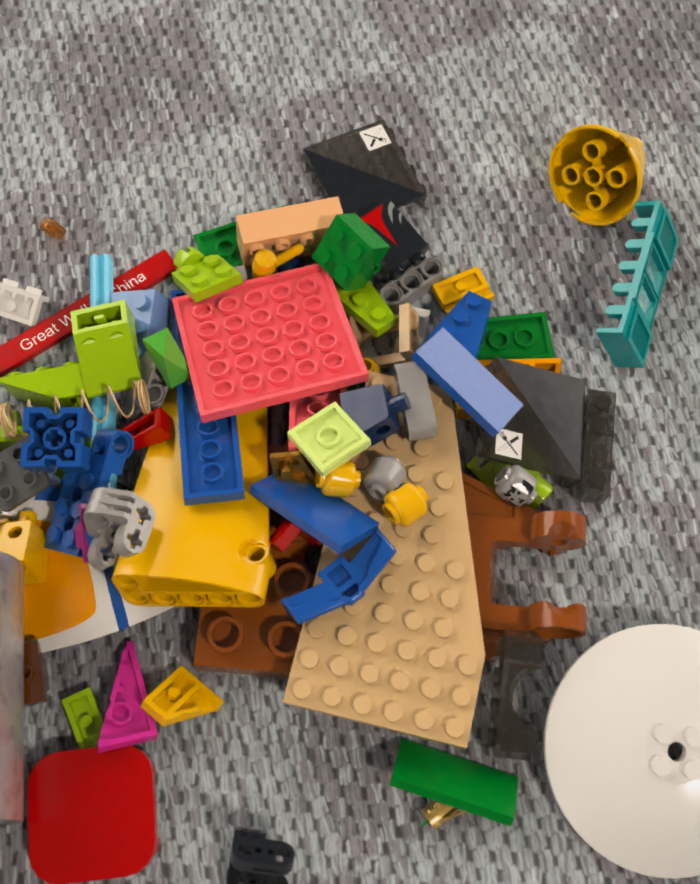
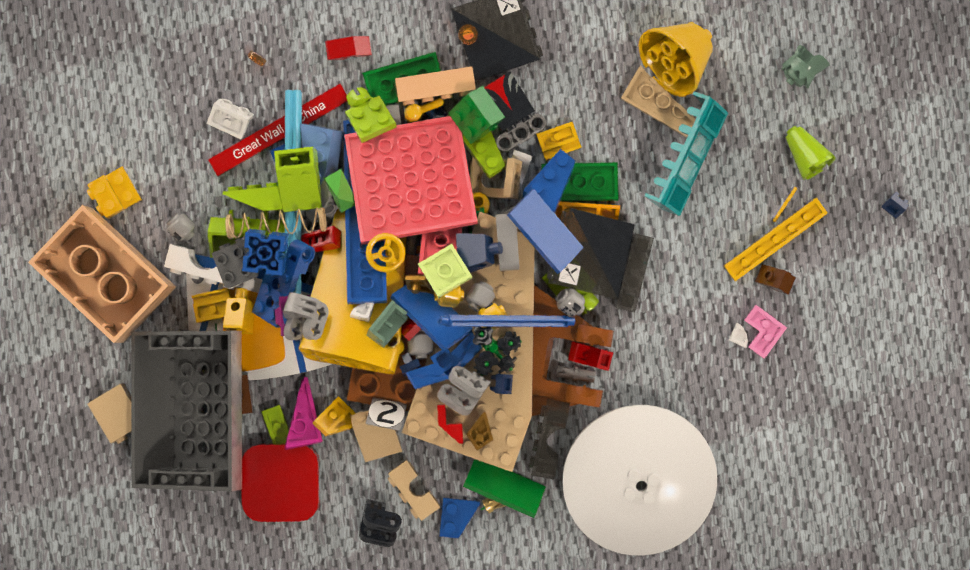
camera: 10 degrees right, 20 degrees up
(165, 207) = (348, 47): none -> red slope
(208, 514) = (362, 312): none -> white tile
(237, 416) = (371, 256): none -> yellow piece
(242, 713) = (374, 440): none -> tan brick
(247, 526) = (387, 324): none -> sand green hinge
(255, 675) = (386, 413): none -> sticker
(285, 589) = (409, 364): none -> dark blue tile
(301, 561) = (420, 345): none -> light grey head
(326, 827) = (421, 505): none -> tan arch
(328, 172) = (468, 34): none -> clear orange tile
(366, 682) = (455, 430): none -> red slope
(382, 842) = (456, 516): none -> blue wing
(391, 616) = (472, 389): none -> light grey piece
(409, 556) = (487, 359): none -> black plant
(409, 685) = (480, 432): none -> pearl gold piece
(424, 502) = (505, 321): none -> piece
(436, 603) = (503, 383): none -> dark blue tile
(527, 596) = (575, 373): none -> light grey pin
(553, 570) = (590, 356): none -> red slope
(575, 235) = (650, 98): none -> tan wing

